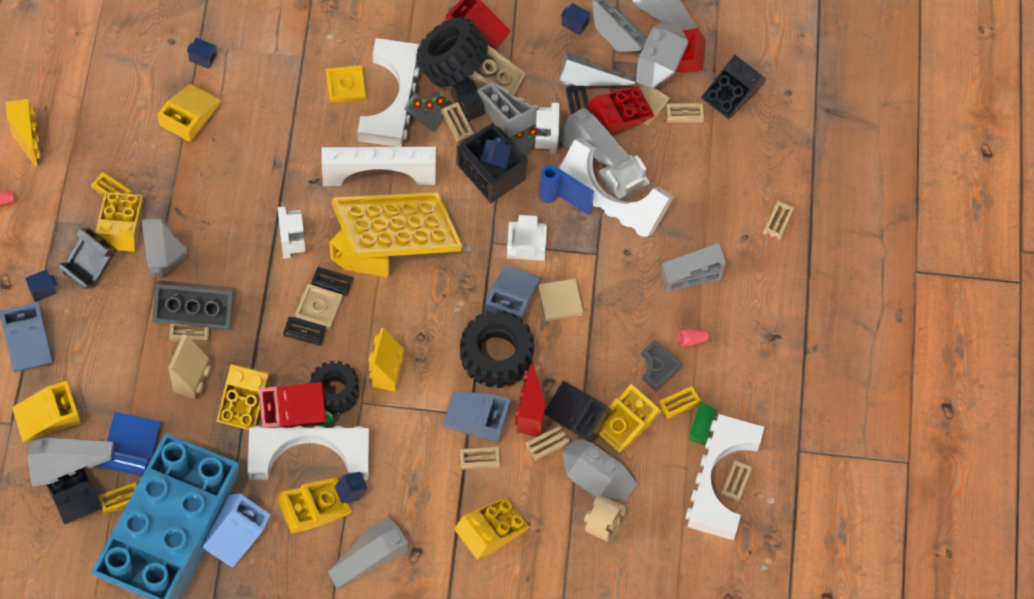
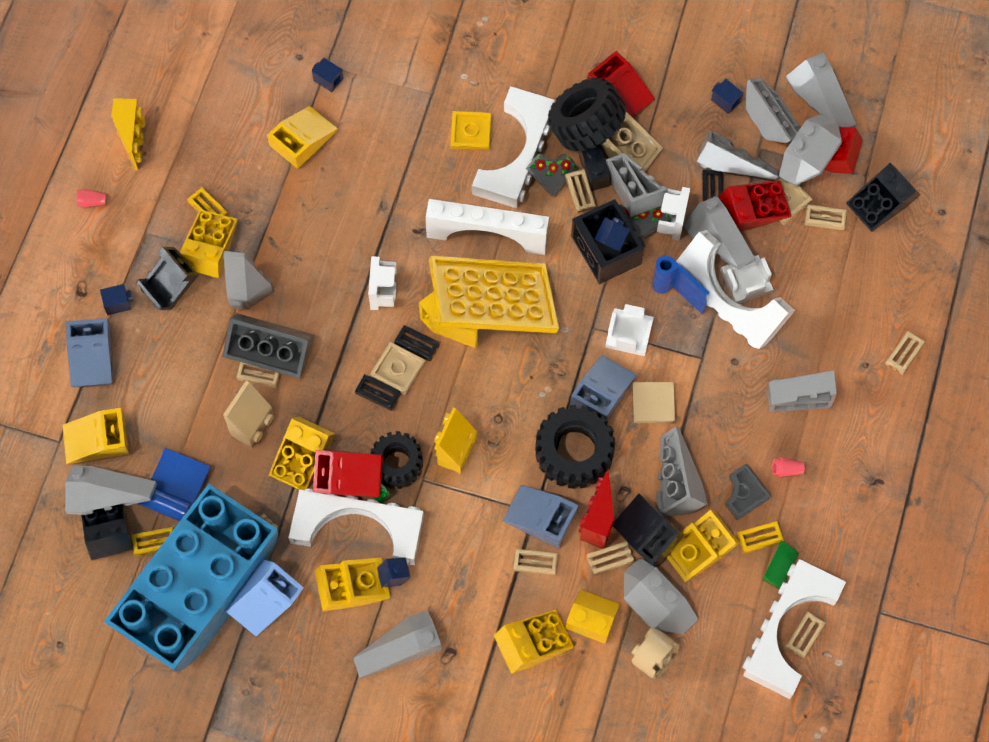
camera: 15 degrees right, 5 degrees up
(541, 497) = (592, 616): none -> yellow slope
(597, 364) = (680, 483): none -> light grey wedge

